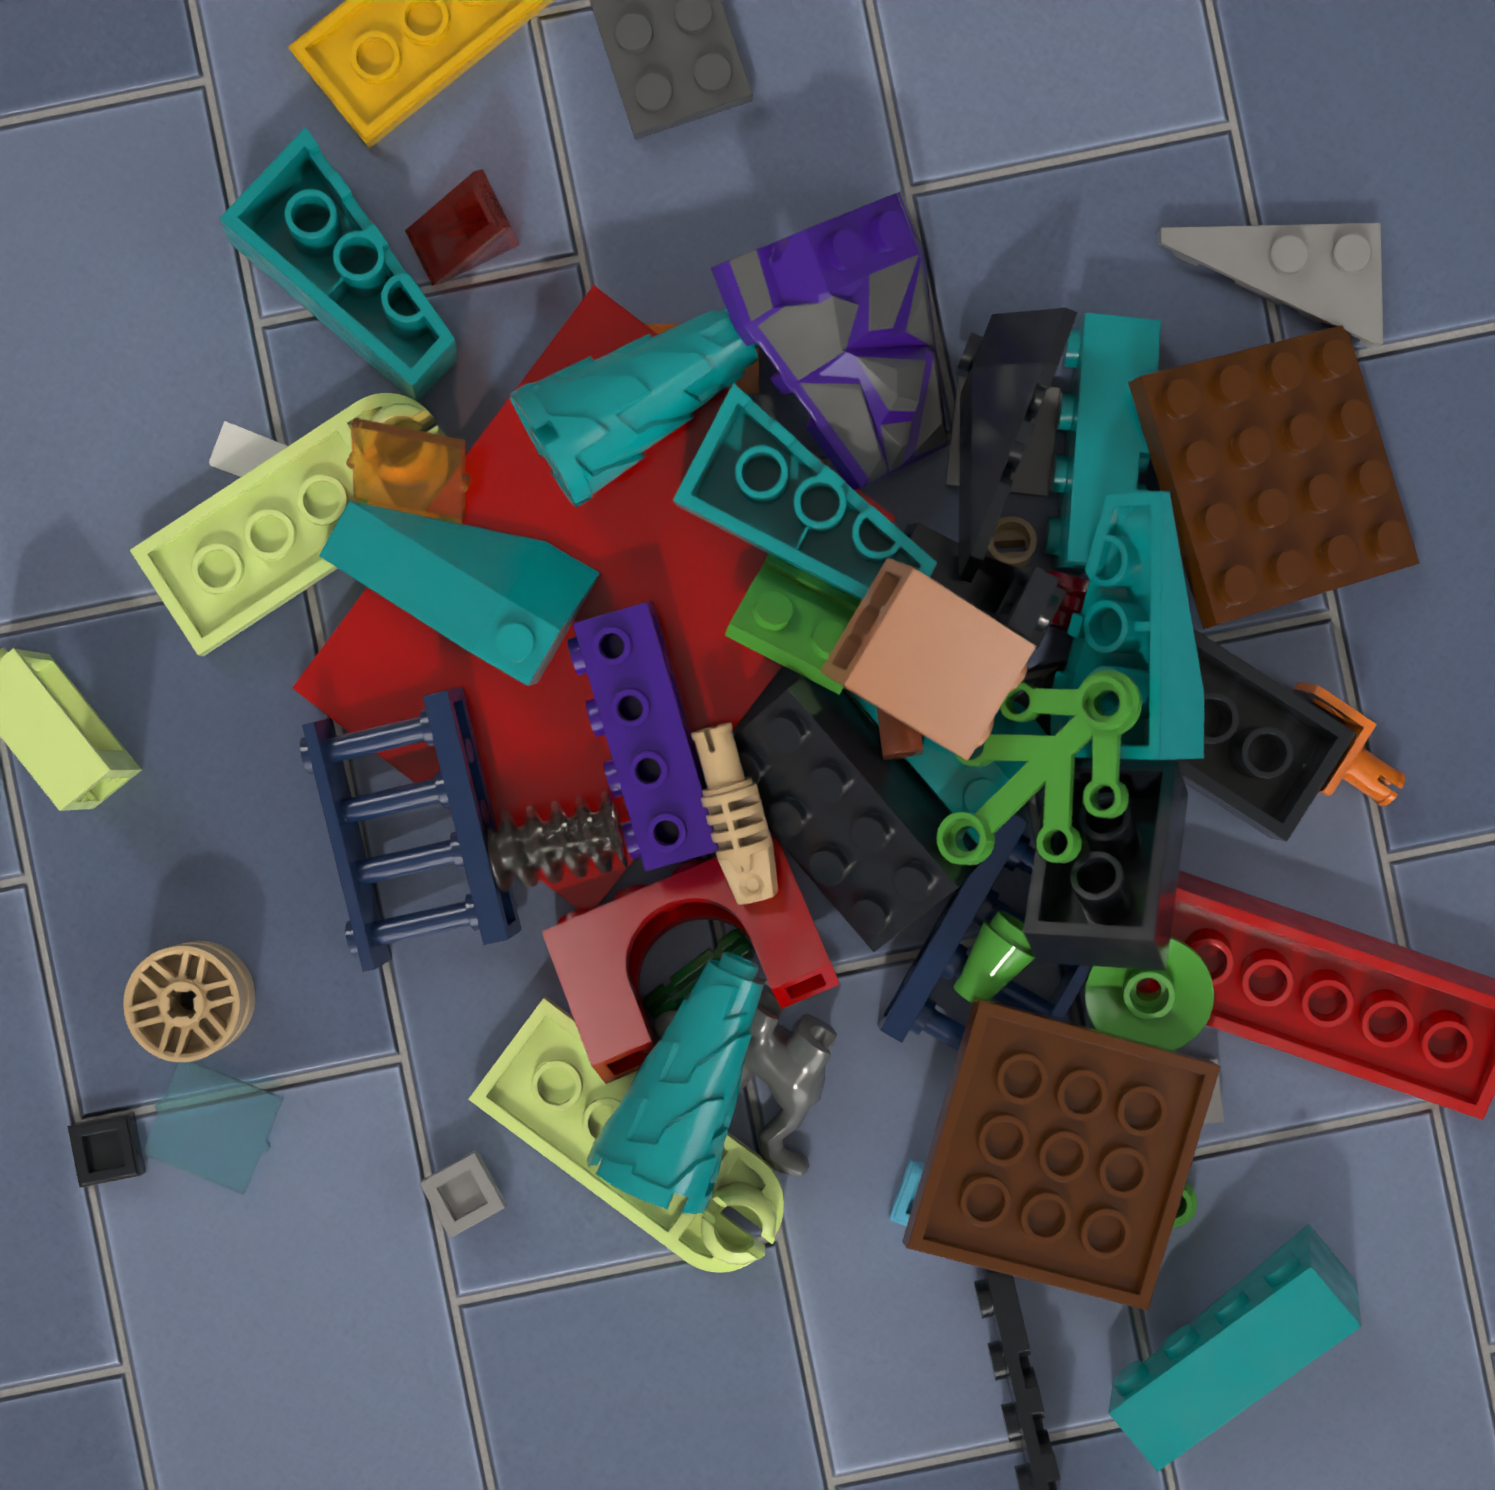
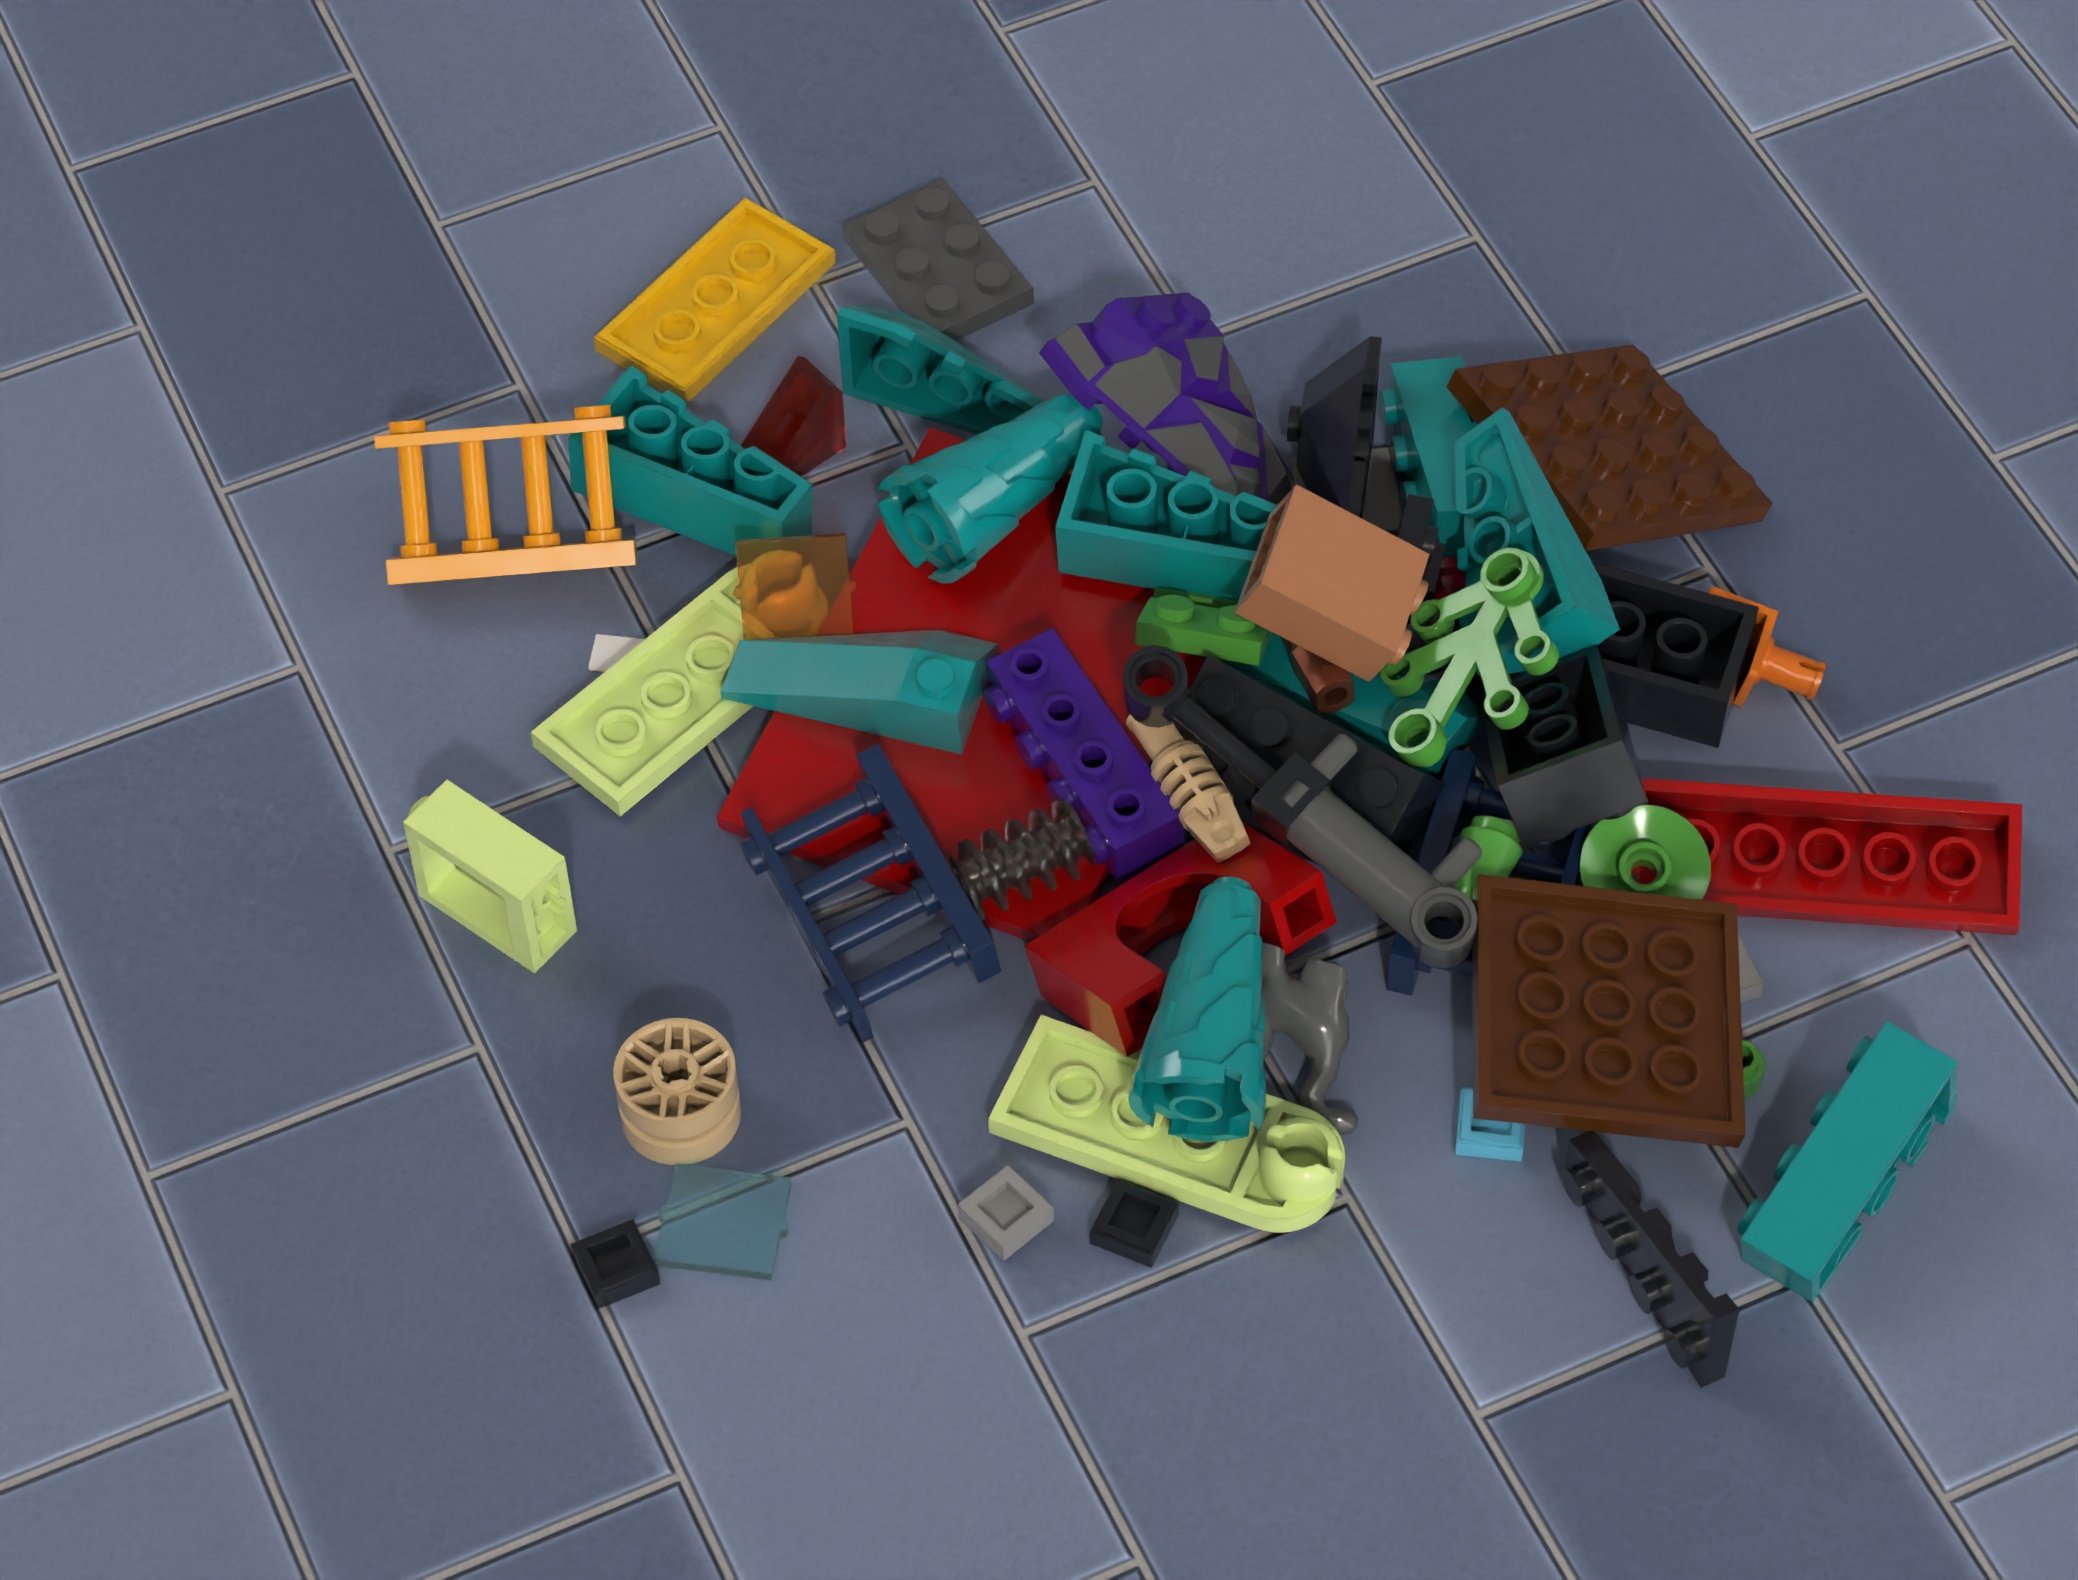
camera: 10 degrees left, 35 degrees down
(140, 326) = (480, 551): none -> light orange fence
(579, 1223) = (1134, 1223): none -> black tile
(601, 174) = (924, 372): none -> teal wedge
(829, 895) = (1303, 811): none -> dark grey piece
(1316, 268) = (1568, 317): light grey wing -> none

